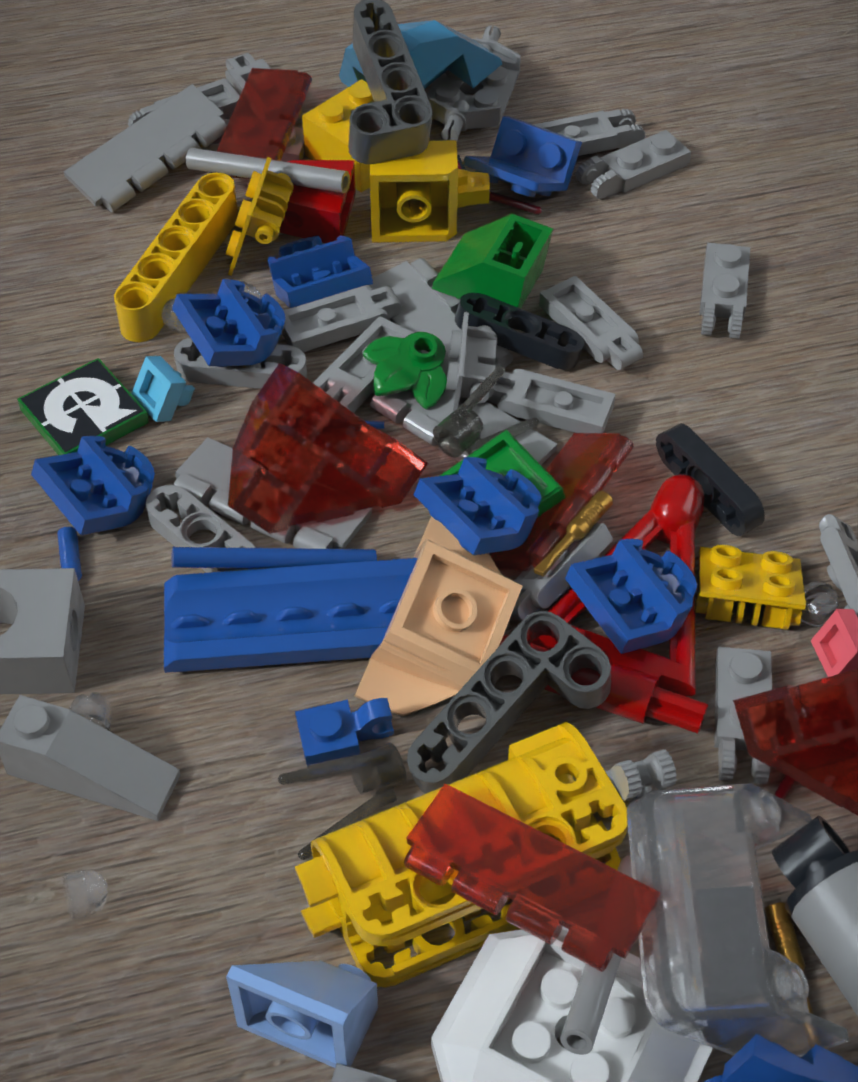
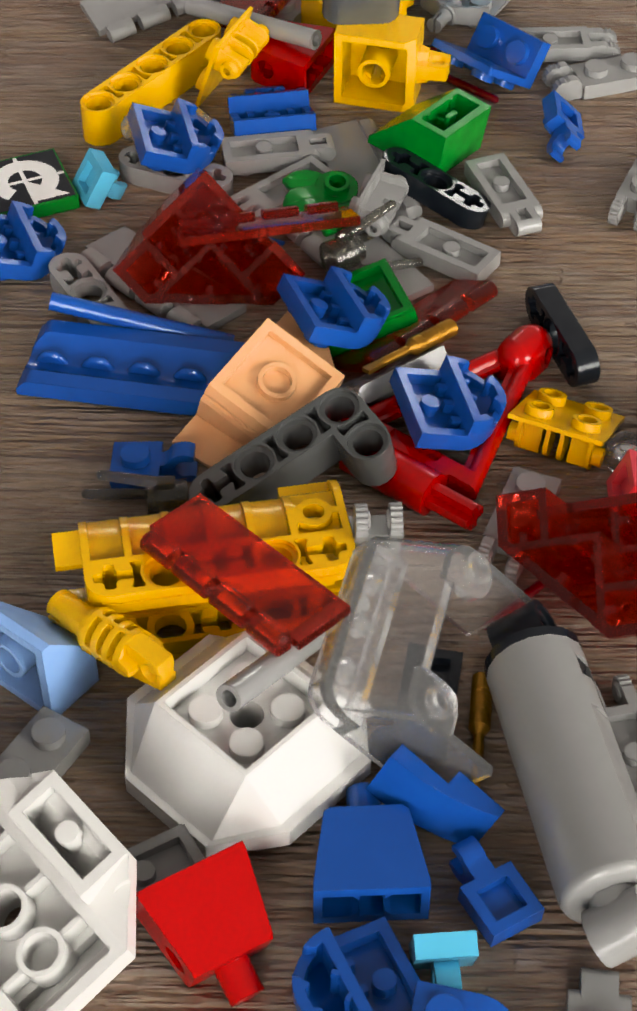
camera: 15 degrees right, 5 degrees down
(381, 418) = (270, 223): none -> clear red windscreen
(405, 980) = (113, 639): none -> yellow hinge
(621, 230) = (563, 124): none -> blue plate

